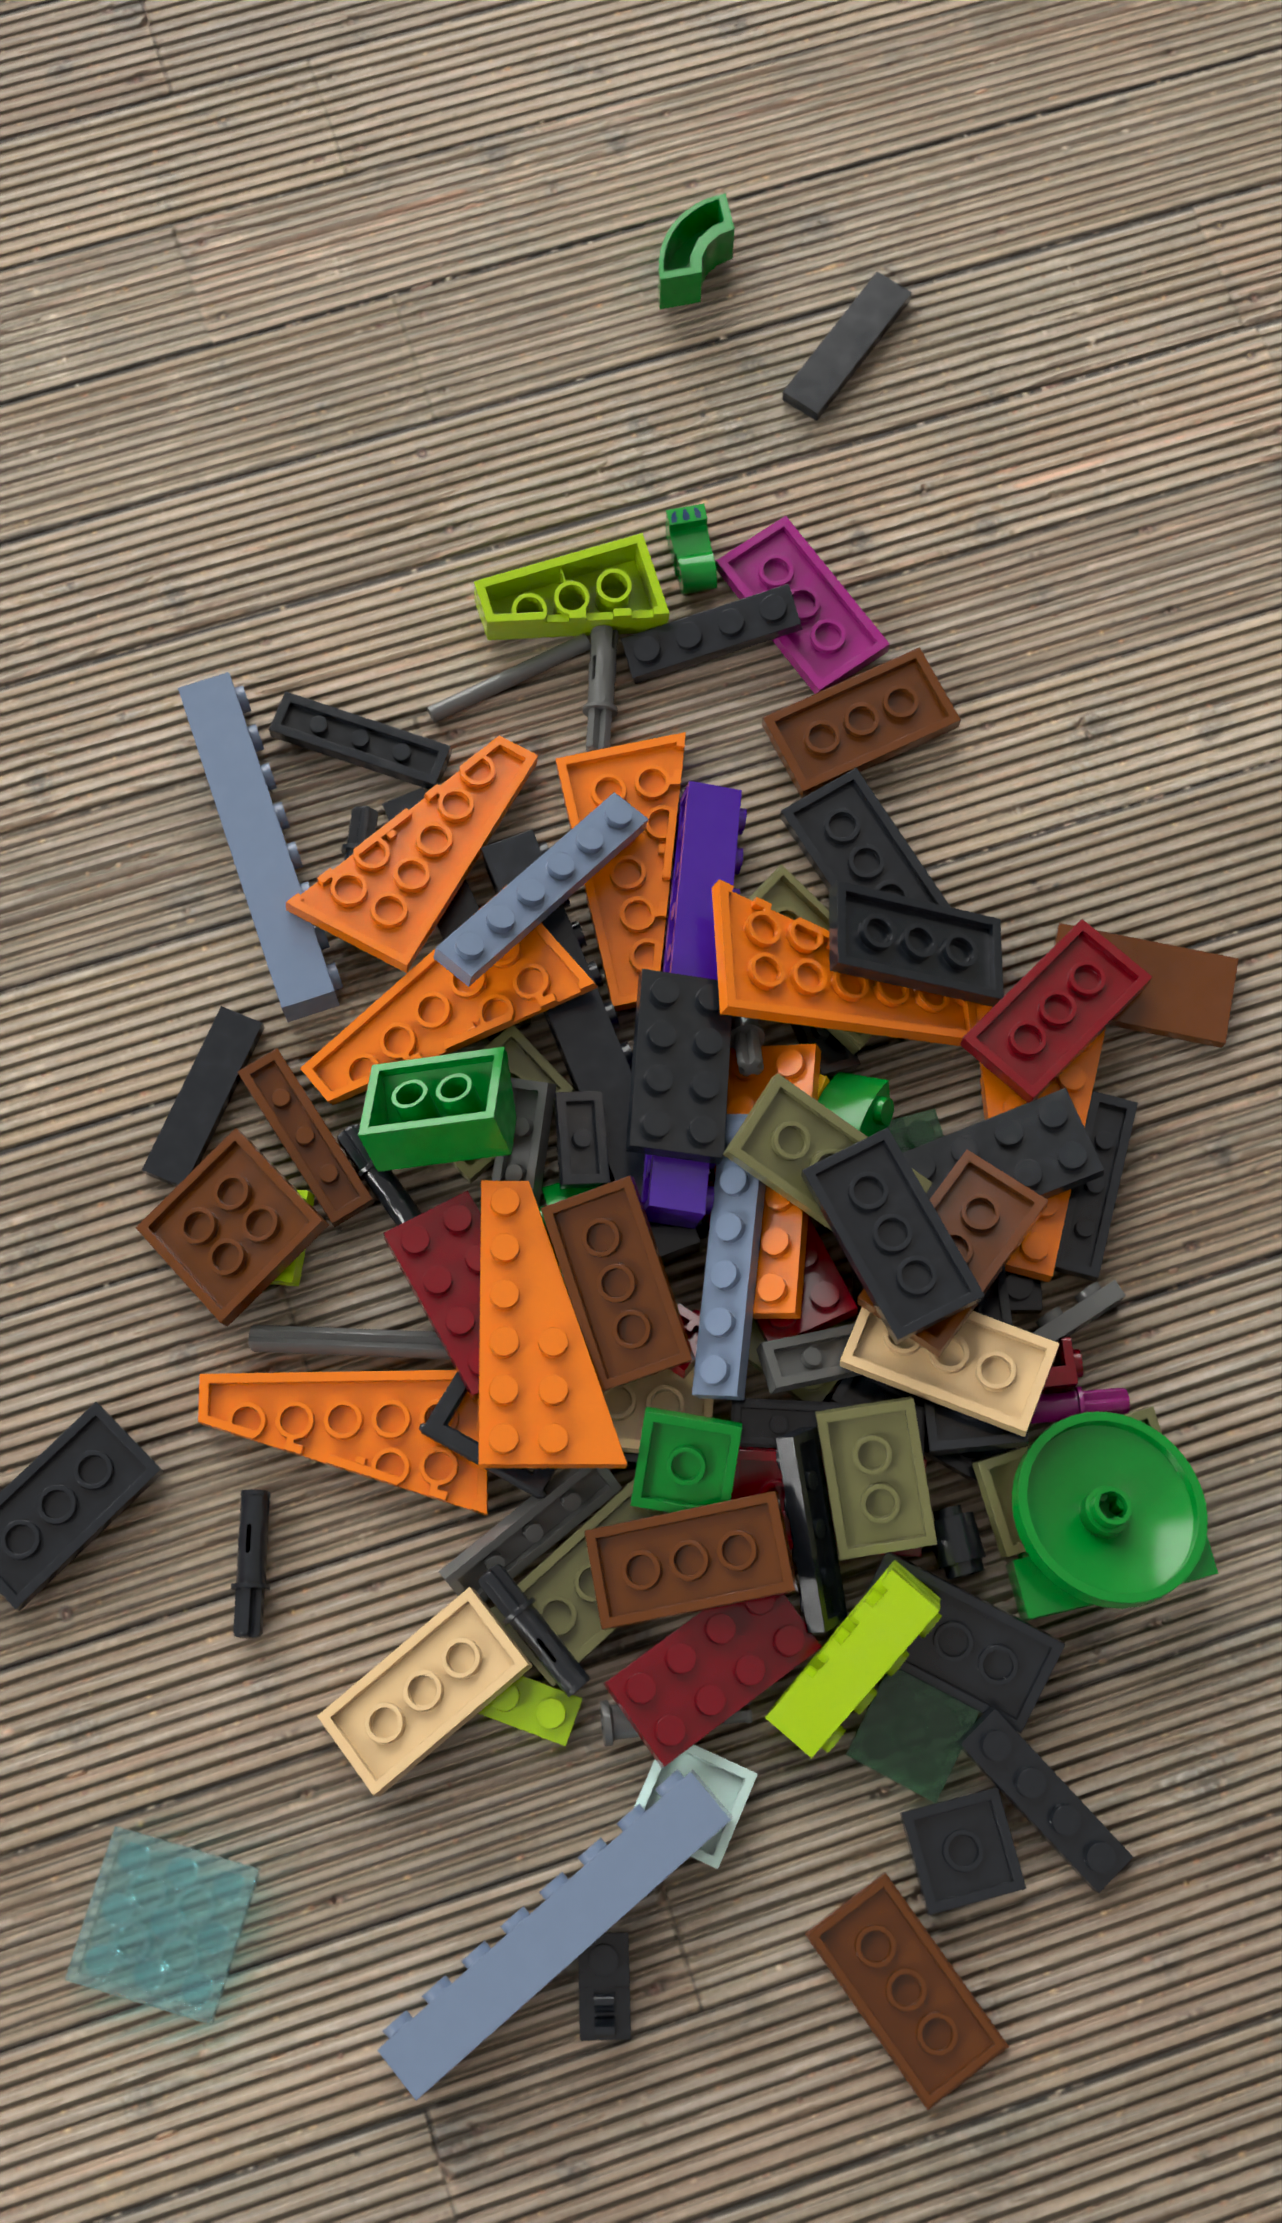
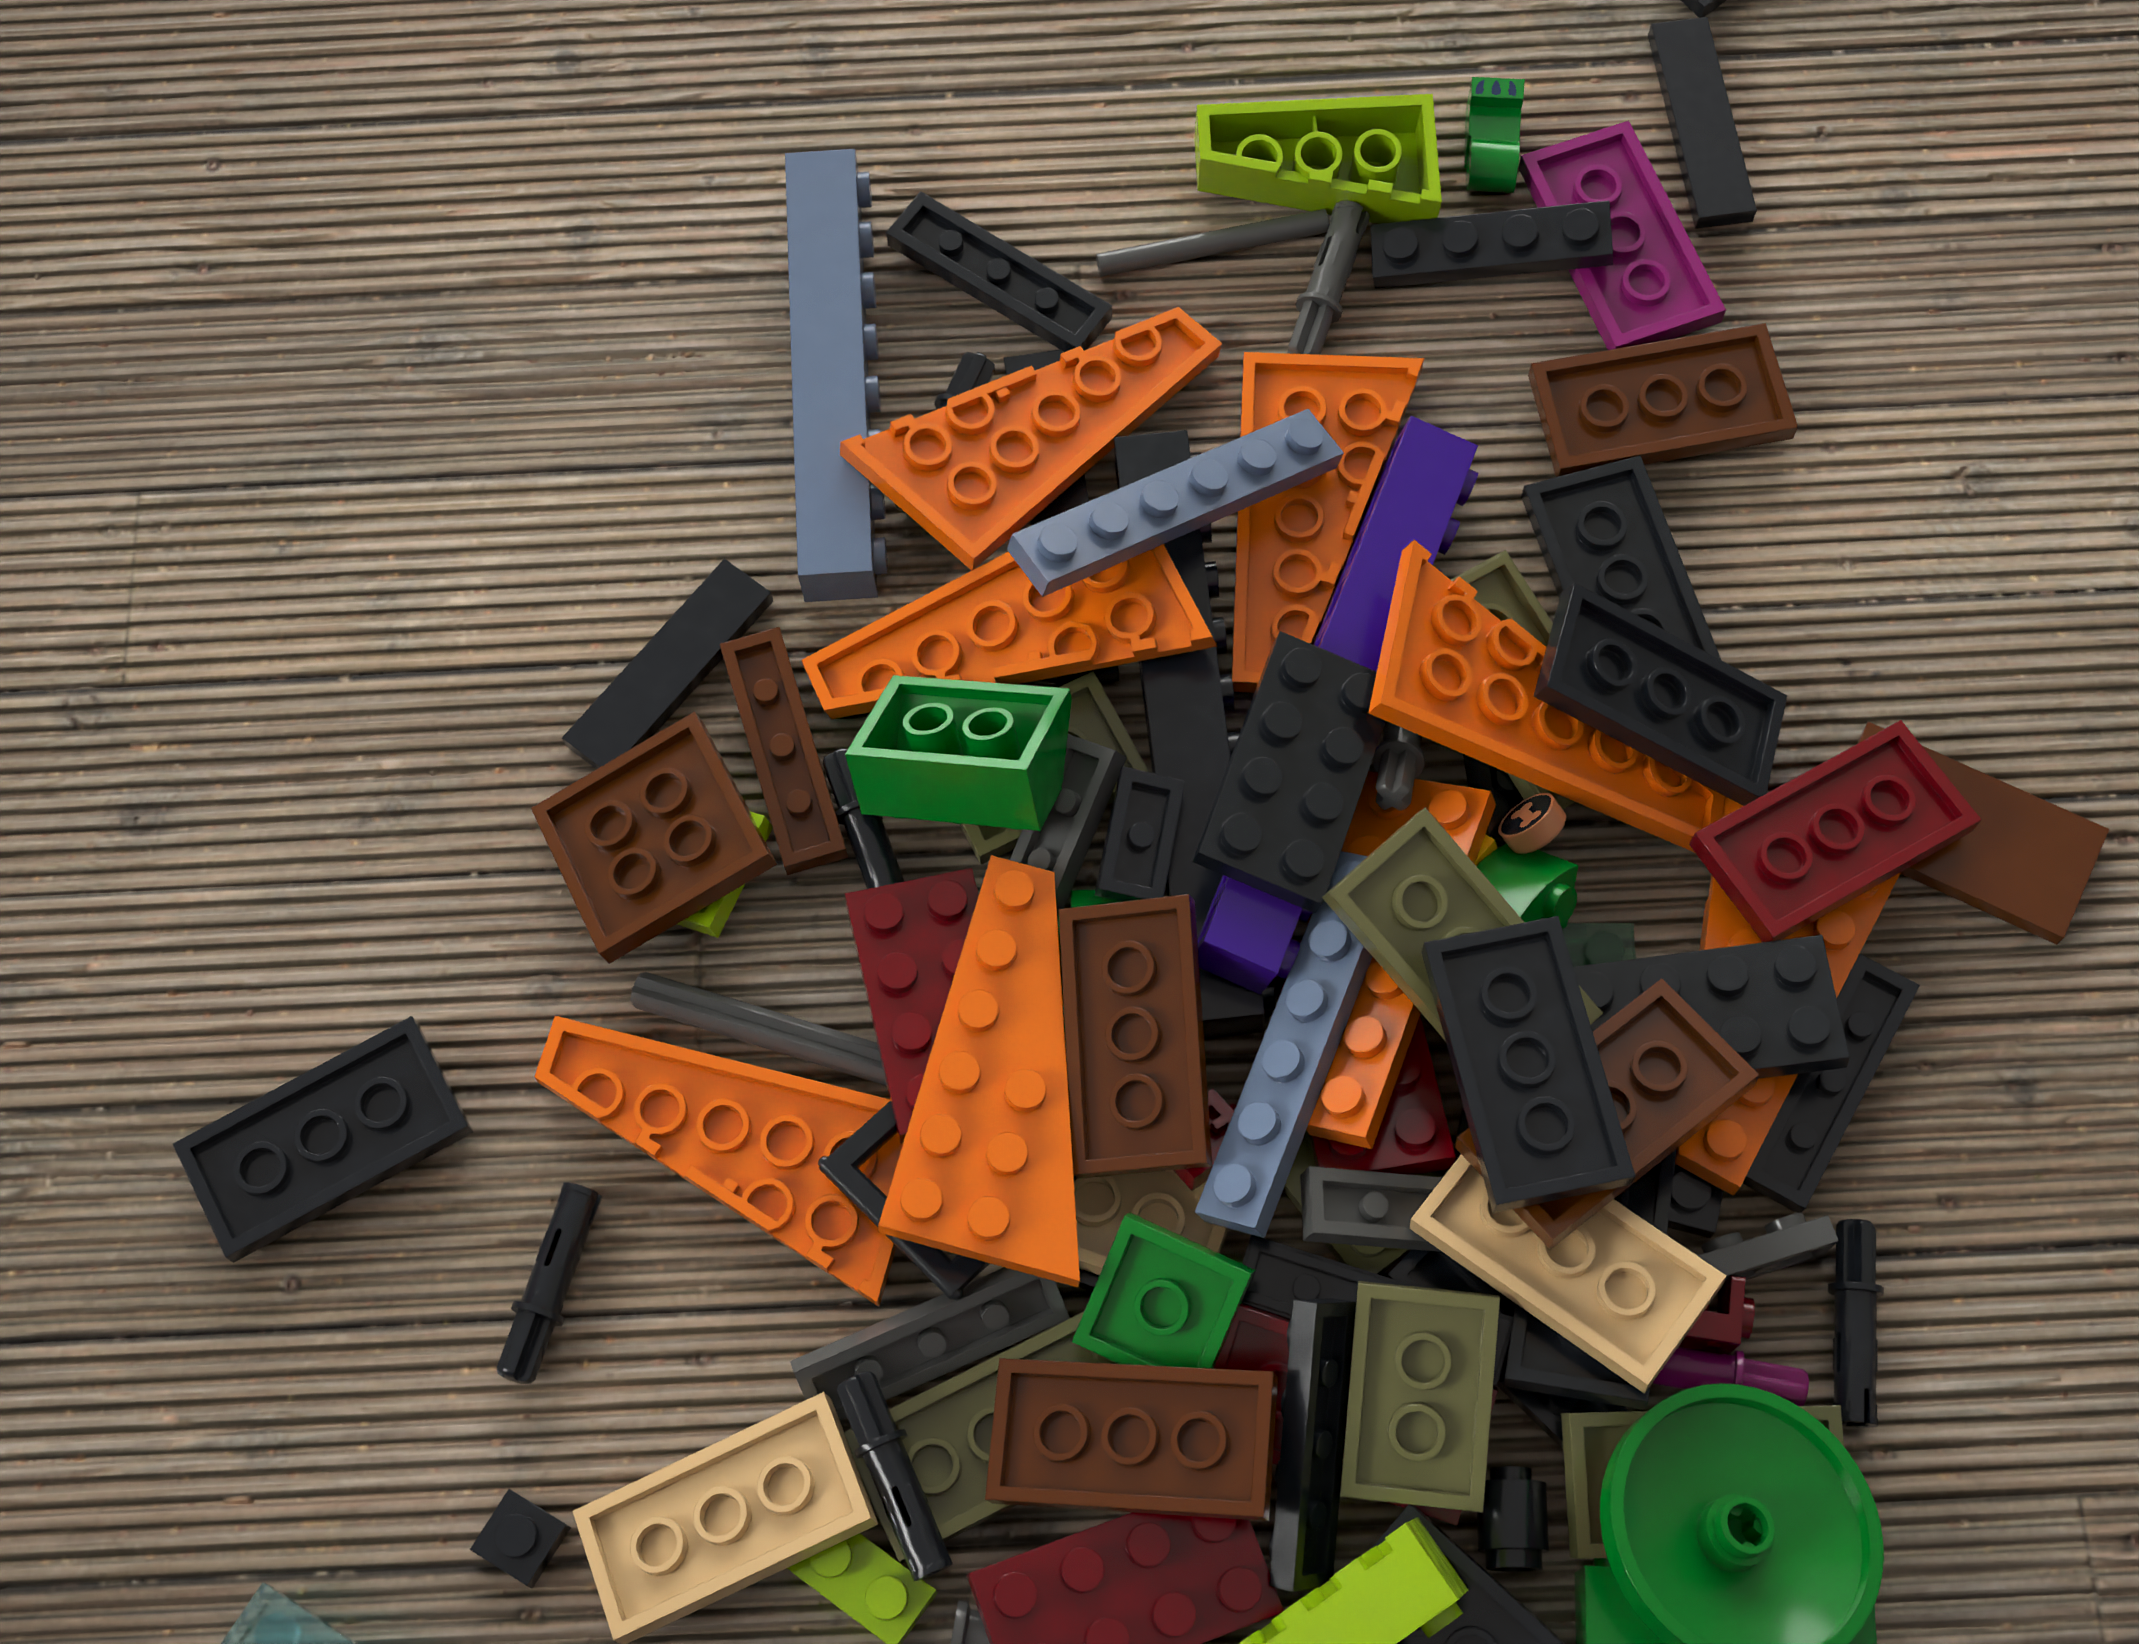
camera: 20 degrees right, 5 degrees down
(284, 1744) = (520, 1538): none -> black plate
(837, 502) = (1701, 123): none -> black tile
(850, 1058) = (1532, 823): none -> nougat tile
(1149, 1346) = (1855, 1323): none -> black axle

